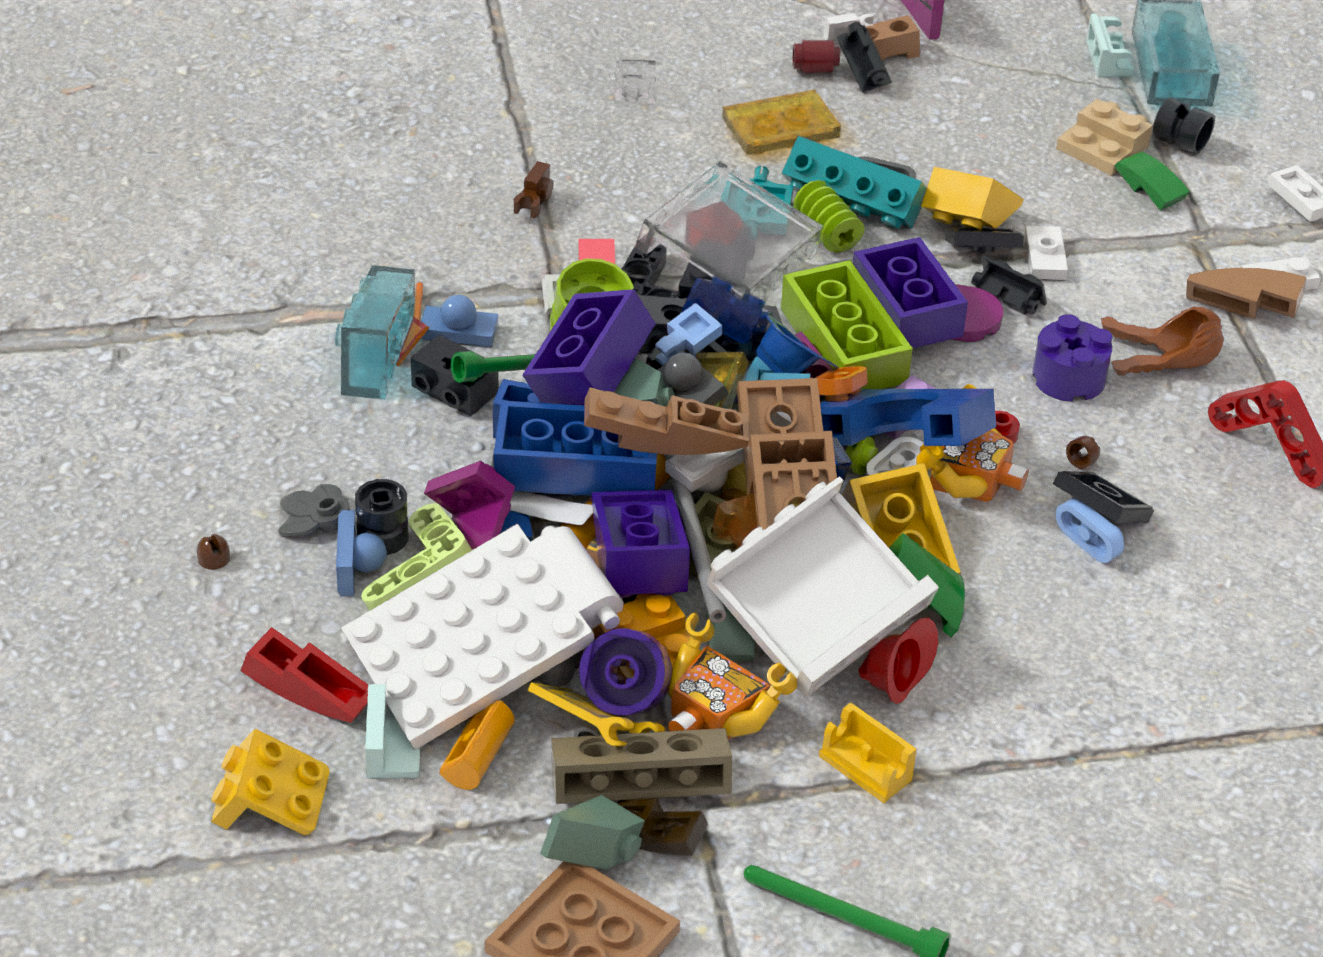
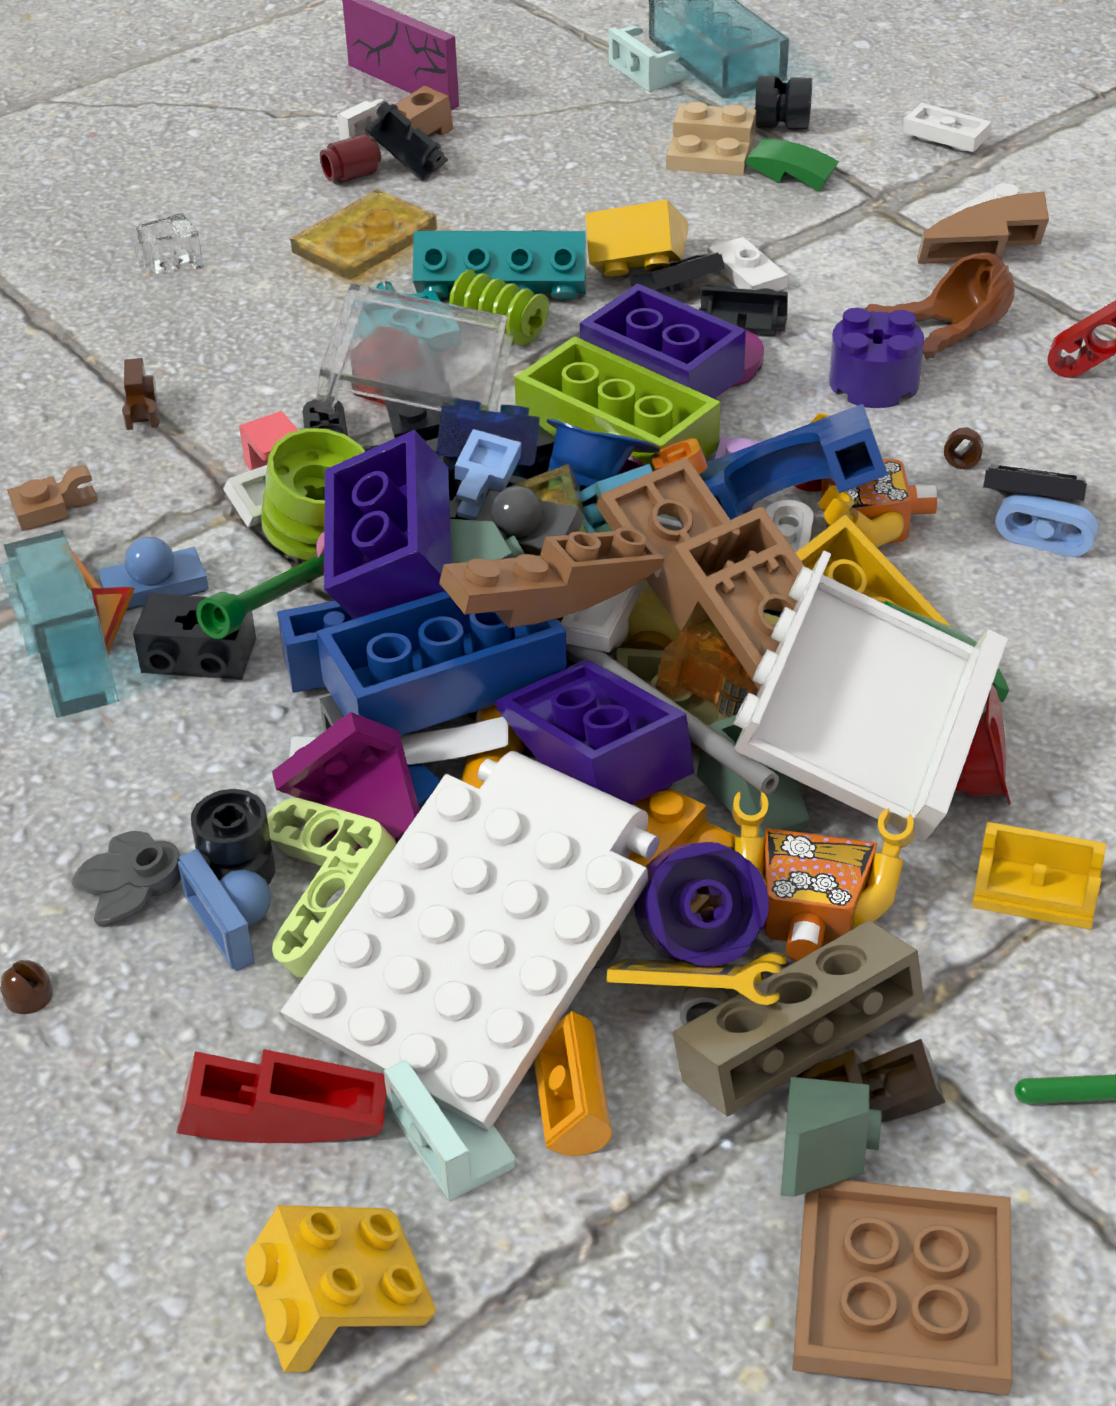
camera: 25 degrees left, 0 degrees up
(429, 243) = (46, 501): none -> medium nougat plate

